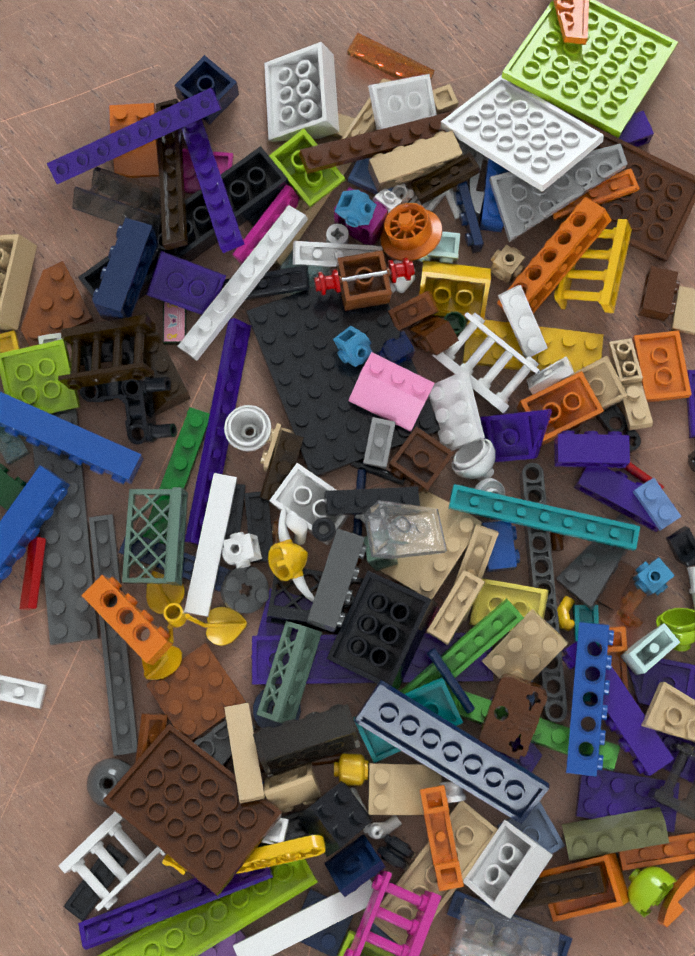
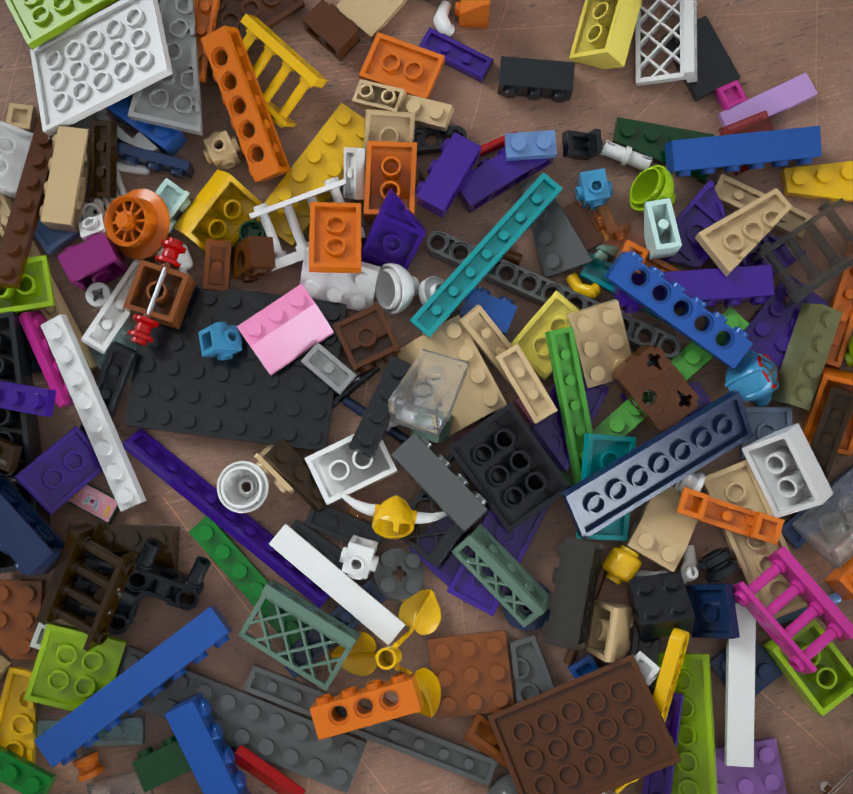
camera: 55 degrees left, 5 degrees up
(244, 753) = (556, 660): tan tile -> none
(298, 526) = (367, 491): white arm -> none
(323, 522) = (376, 468): black plate -> none
(355, 208) = (83, 260): dark azure brick -> none
(397, 350) = (248, 300): clear blue brick -> none
(451, 681) = (588, 427): dark blue bar -> none
(486, 388) = (335, 237): none -> orange plate
(522, 321) = (287, 167): white plate -> none
(567, 797) = (754, 378): none -> dark azure piece
(604, 615) = (605, 253): none -> sand green arm

